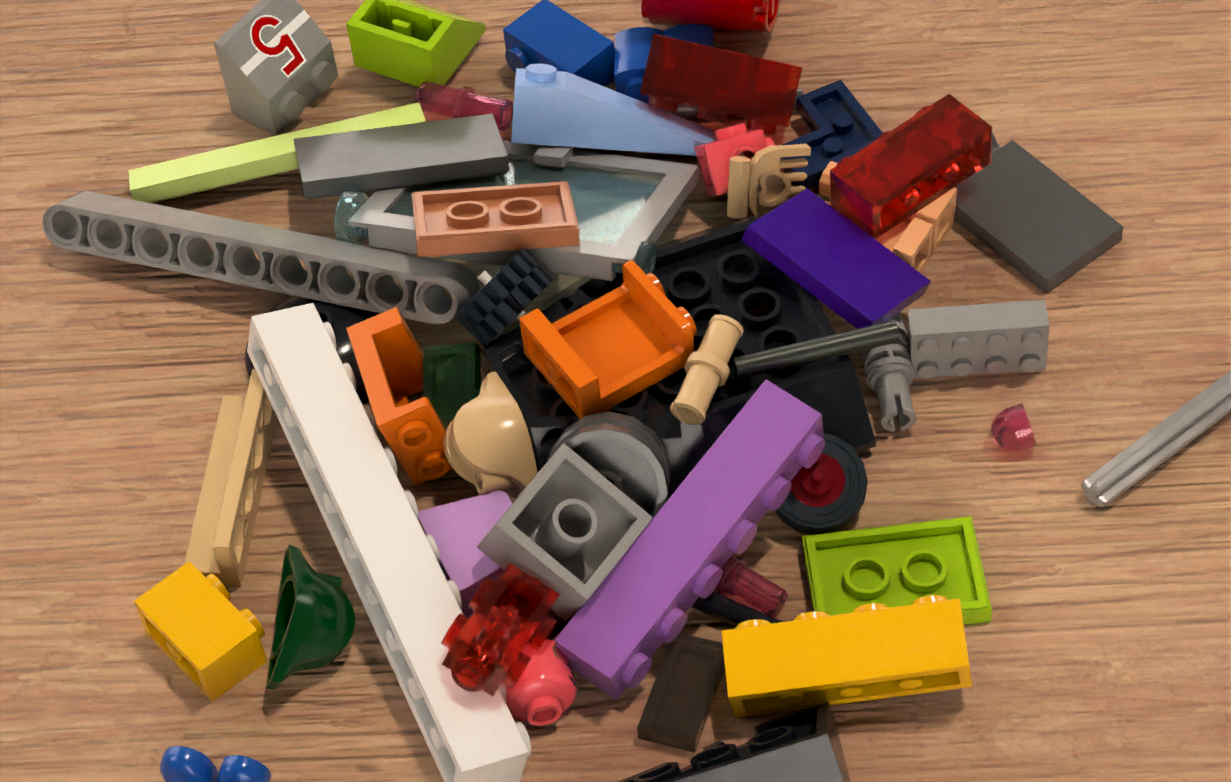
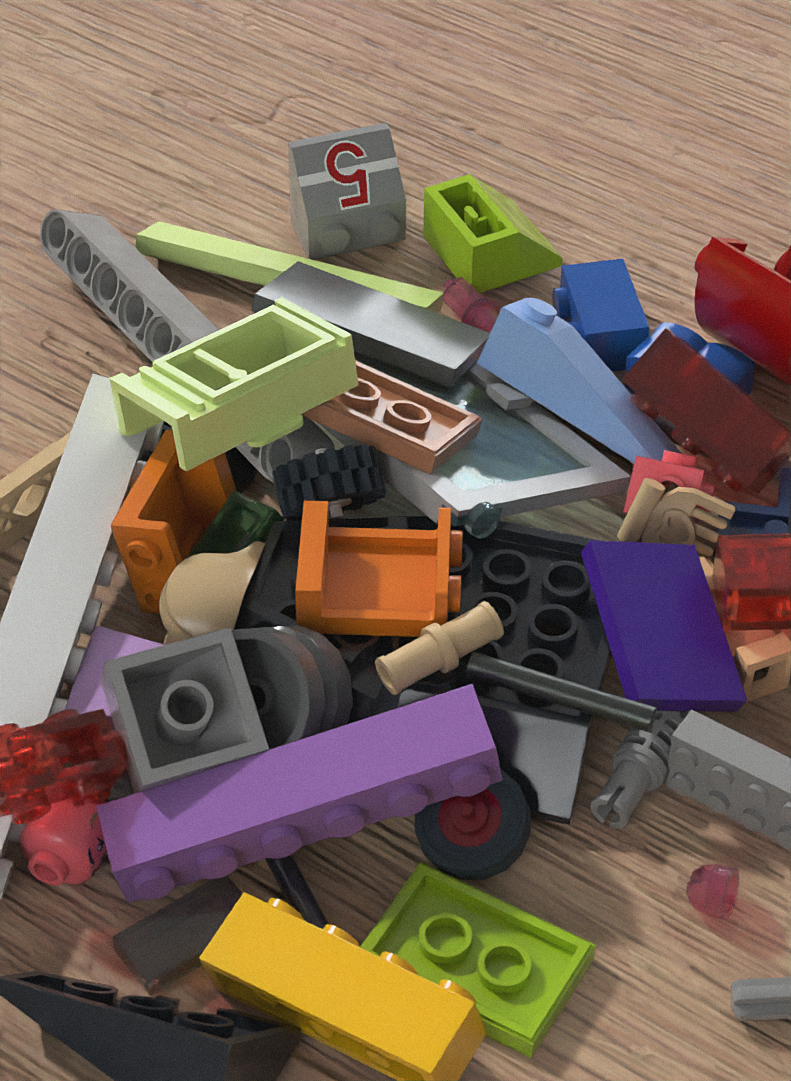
camera: 30 degrees right, 5 degrees down
(429, 262) = (277, 370): none -> yellowish green piece
(750, 587) = (327, 868): clear pink axle -> none

